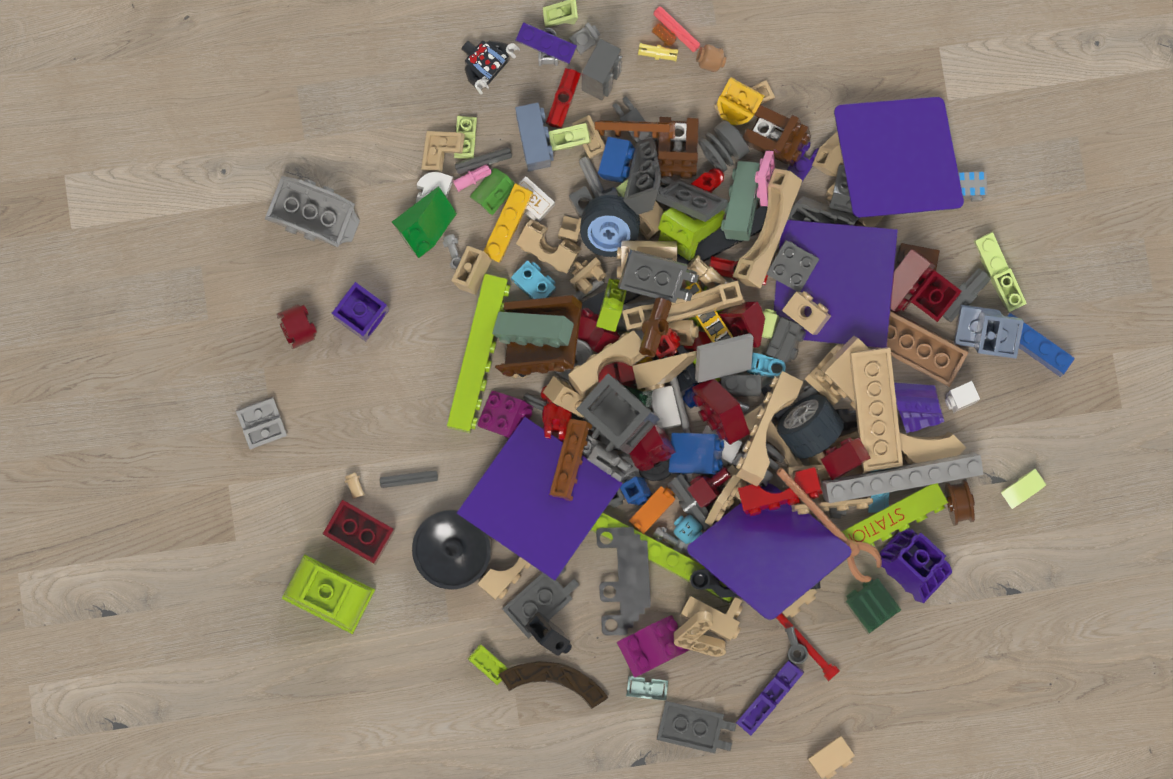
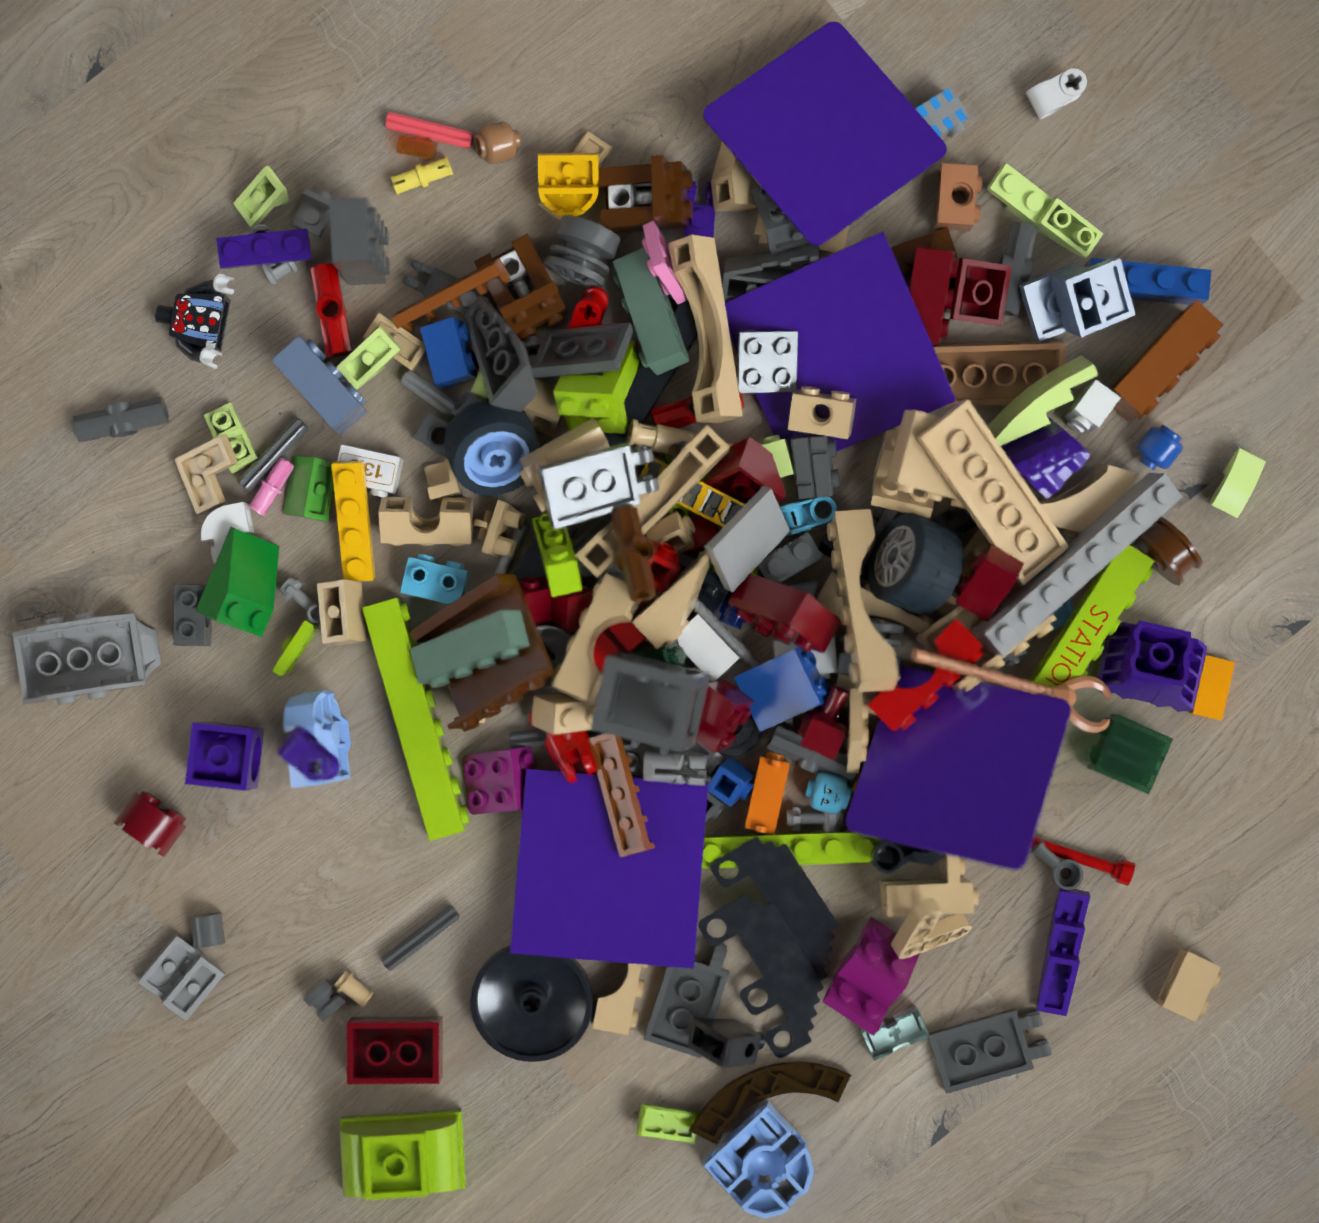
camera: 30 degrees left, 5 degrees up
(291, 405) = (207, 930): none -> dark grey brick
(334, 482) = (324, 1000): none -> dark grey wheel
(383, 229) = (190, 626): none -> dark grey brick
(409, 92) = (120, 419): none -> dark grey piece
(411, 332) = (305, 752): none -> dark purple piece
(415, 343) = (322, 717): none -> light blue connector
(432, 274) = (294, 647): none -> lime plate
(525, 717) = (762, 1159): none -> light blue connector
(605, 617) = (784, 967): none -> black piece
(925, 377) = (1029, 408): none -> yellowish green slope
(942, 597) = (1213, 688): none -> light orange tile
(959, 225) = (964, 180): none -> nougat brick
(989, 443) = (1159, 447): none -> blue head
(1016, 394) = (1164, 359): none -> dark orange brick
(1042, 209) = (1053, 94): none -> white piece

